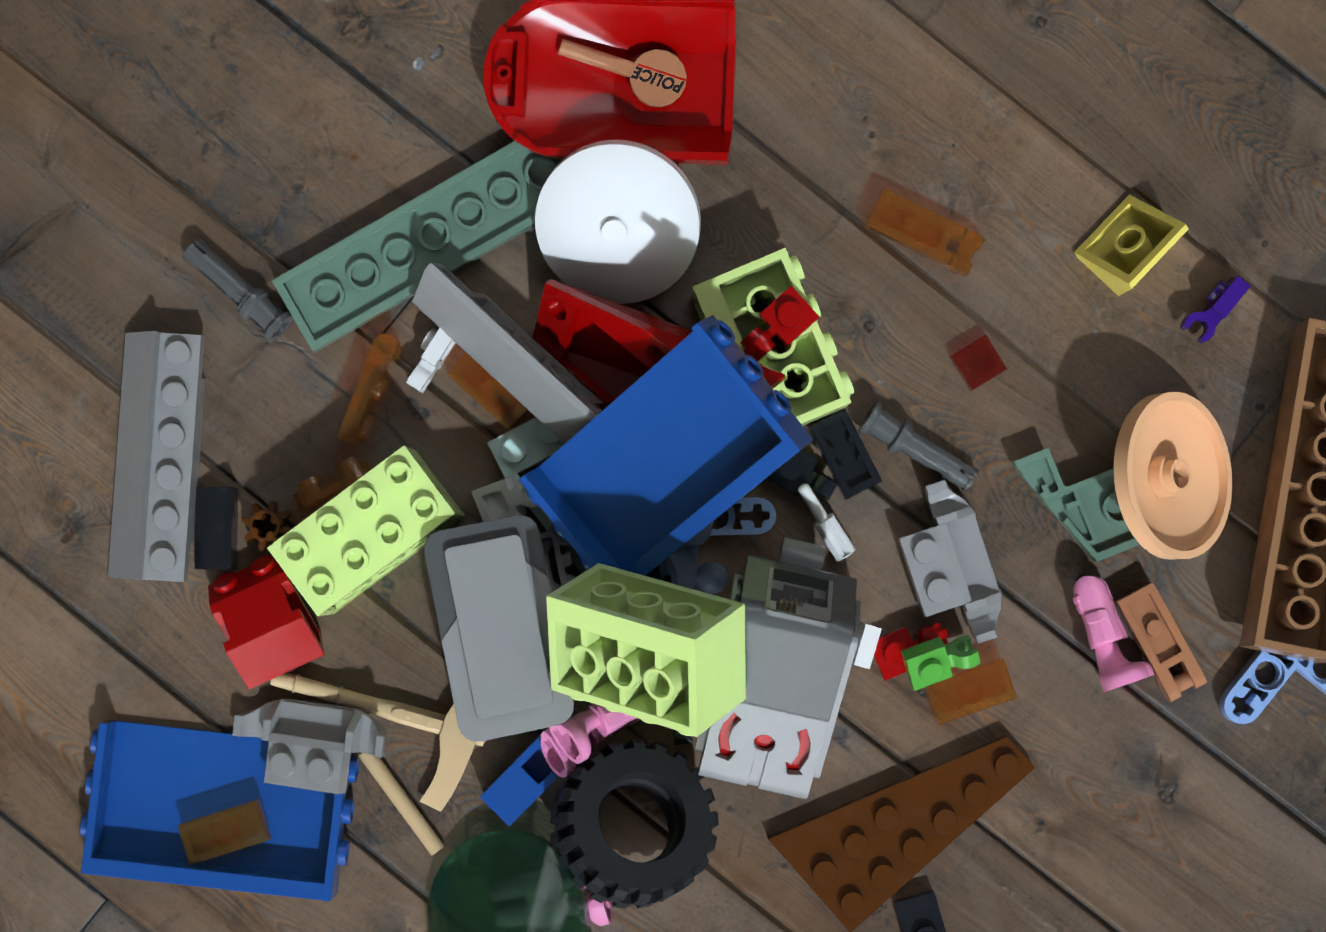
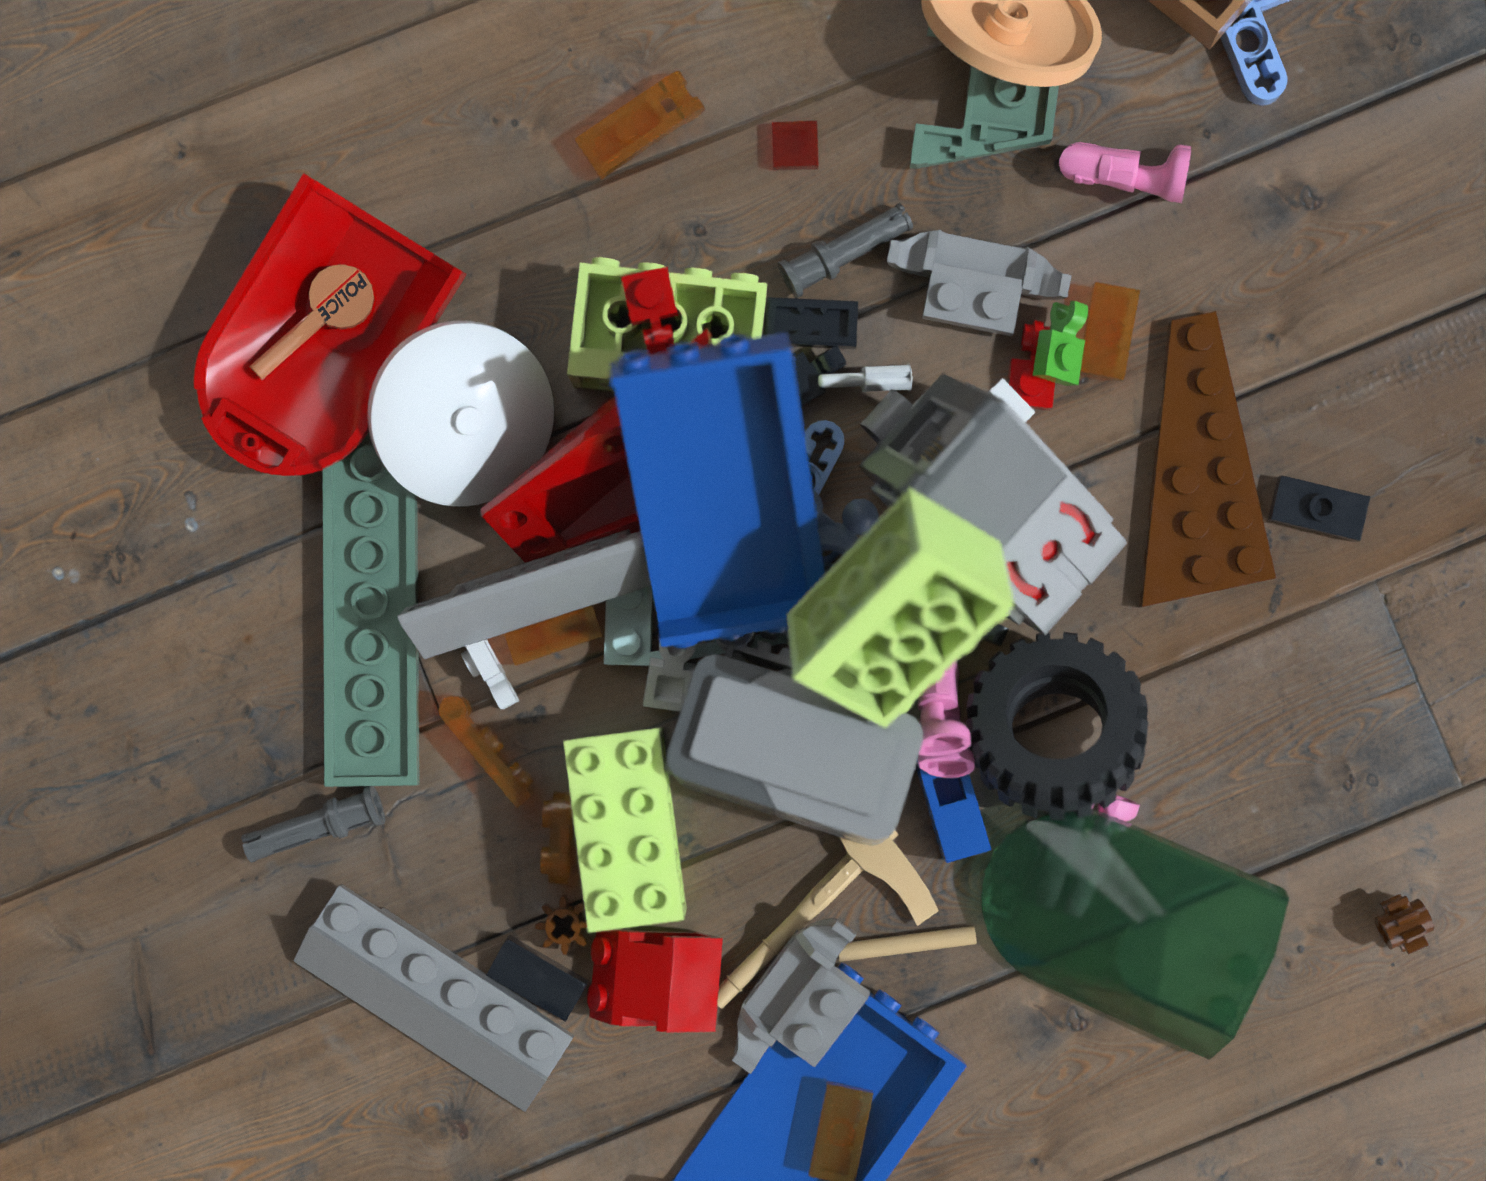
camera: 60 degrees left, 0 degrees up
(1160, 640) = (1160, 122): nougat plate -> none

